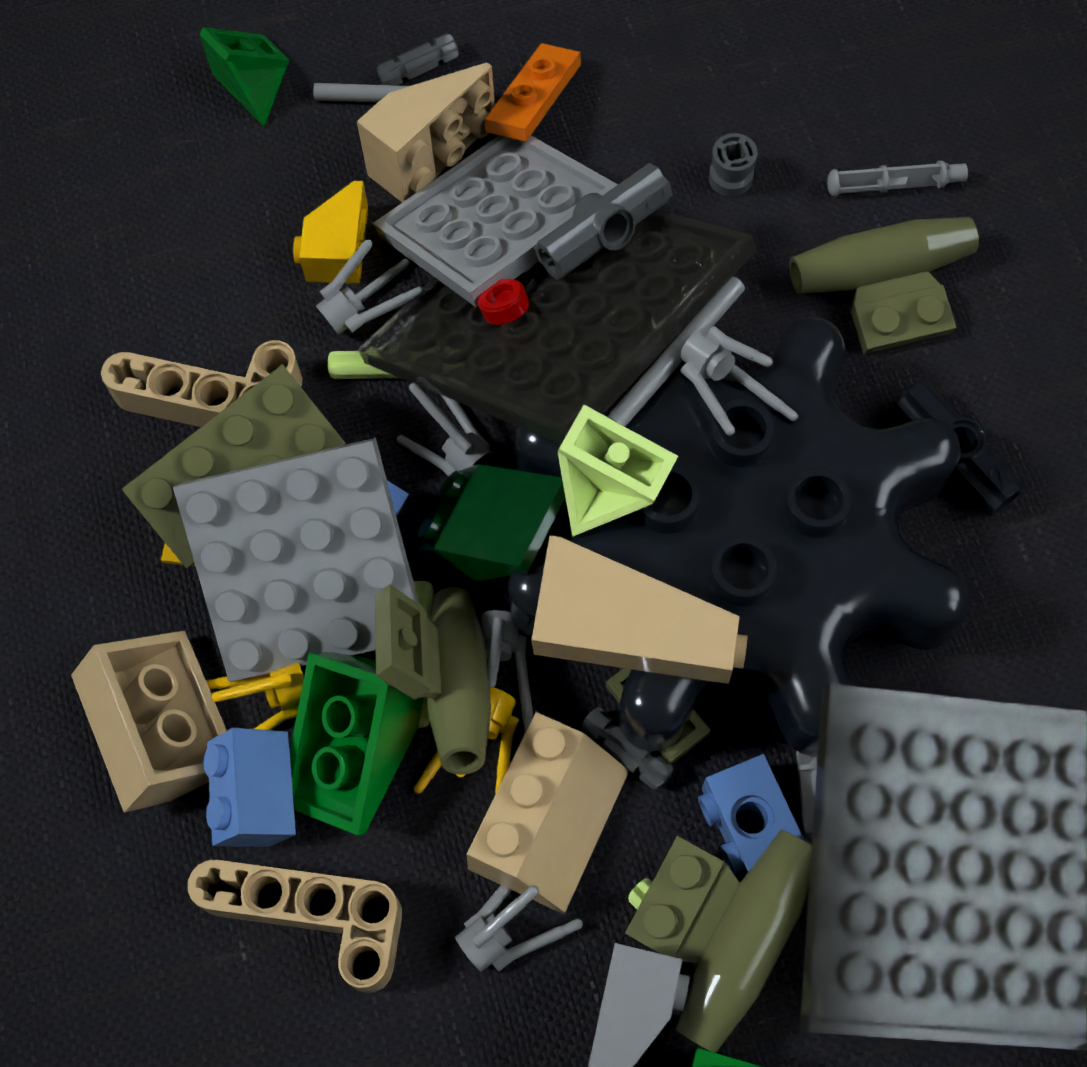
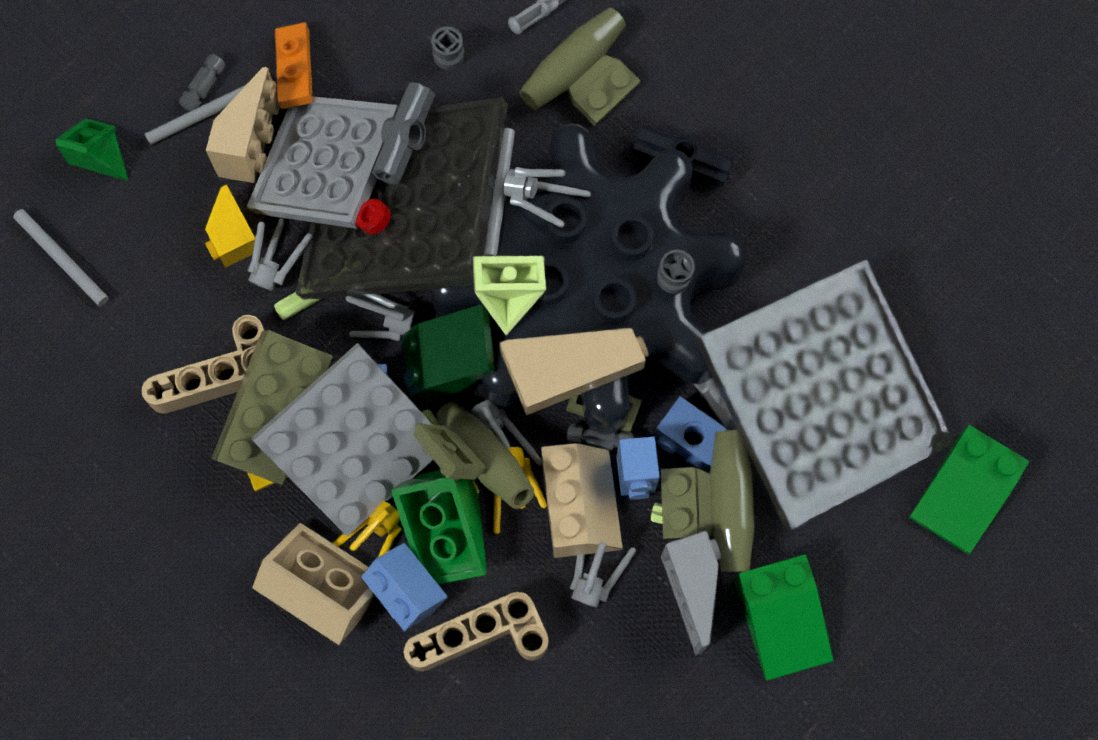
camera: 35 degrees left, 5 degrees up
(131, 171) = (61, 257): none -> light grey bar
(647, 814) = (637, 467): none -> medium blue brick
(855, 567) = (677, 264): none -> dark grey wheel

